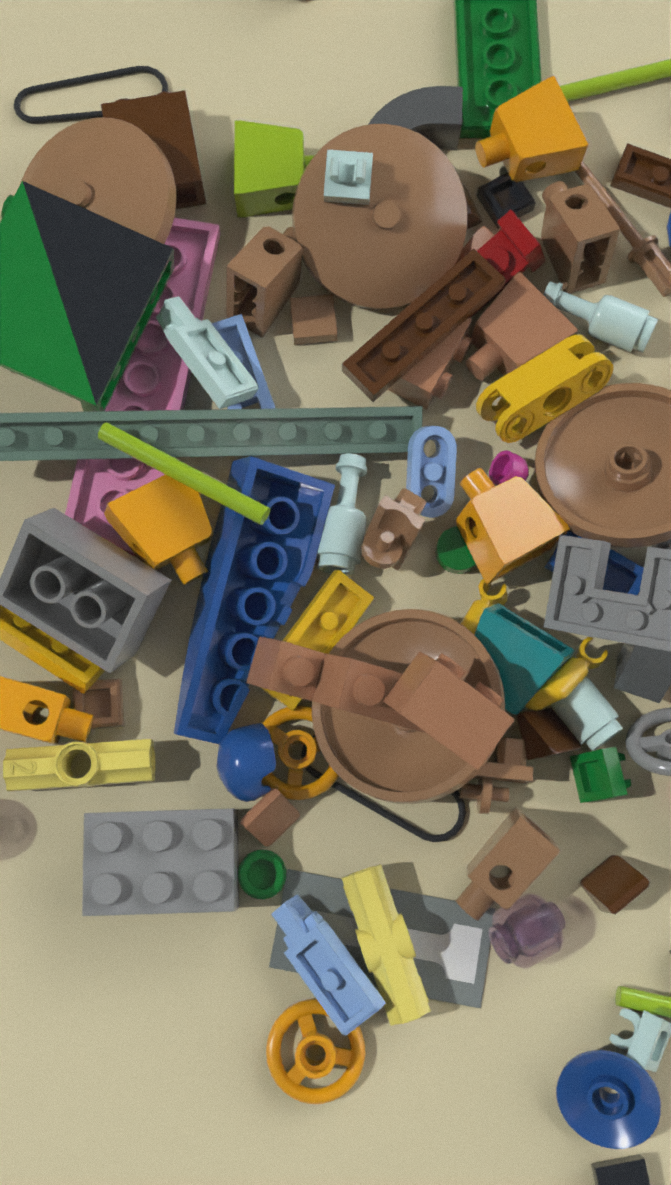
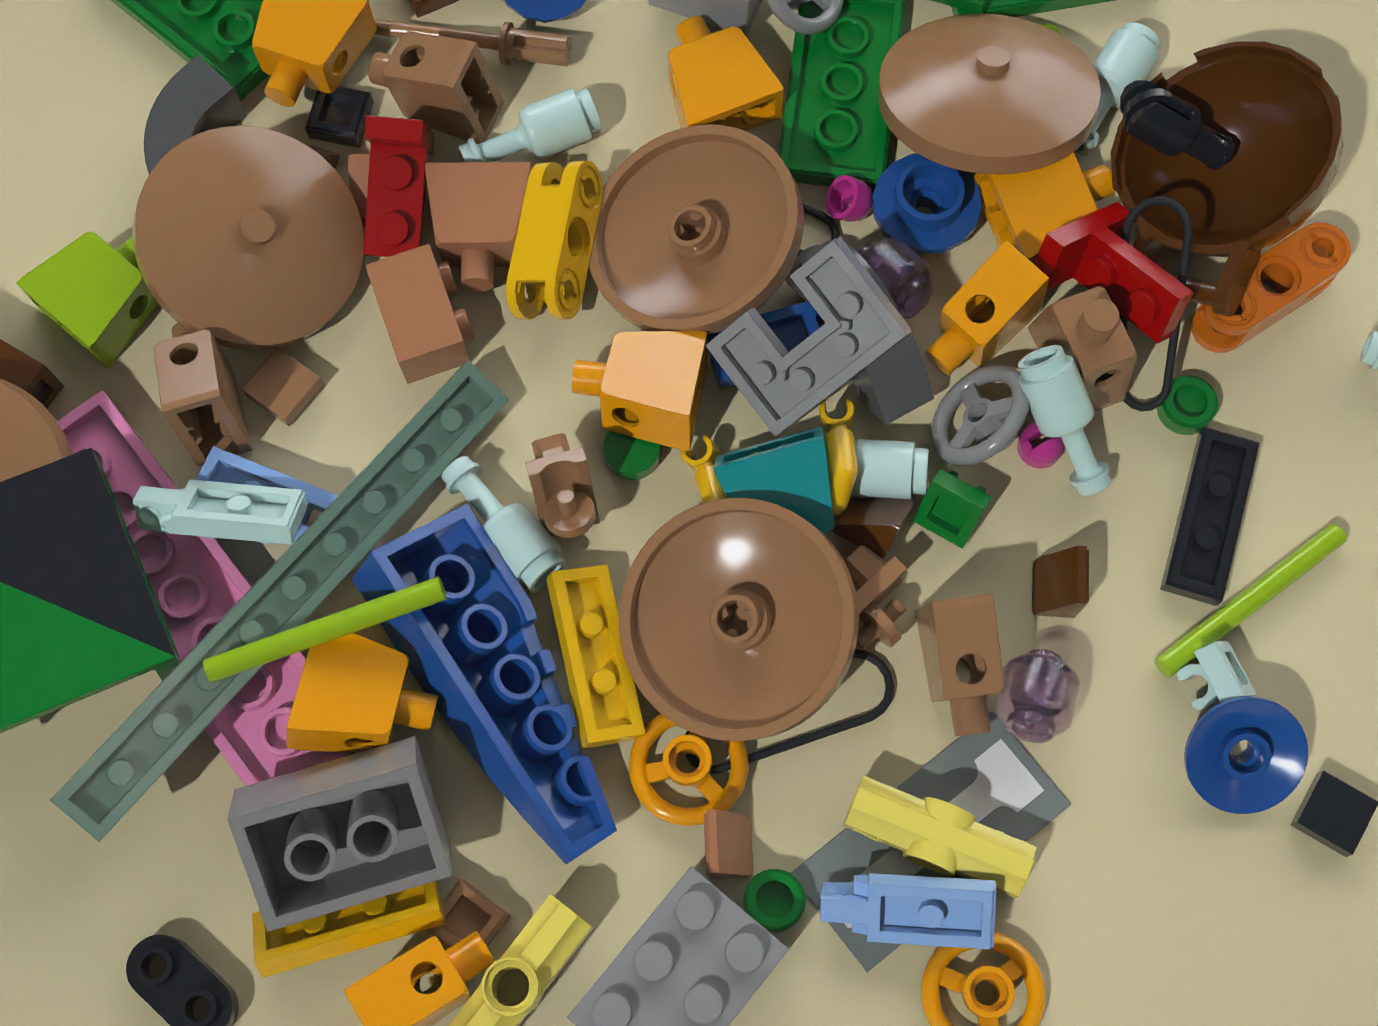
camera: 45 degrees left, 5 degrees down
(244, 760) = (654, 817): blue hair -> none
(326, 679) = (662, 658): nougat arch -> none
(348, 177) = (189, 226): light aqua tile -> none
(423, 325) = (394, 290): reddish brown plate -> none
(435, 470) = (539, 402): light blue plate -> none
(450, 709) = (780, 572): nougat brick -> none
(506, 466) = (596, 337): dark pink hinge -> none

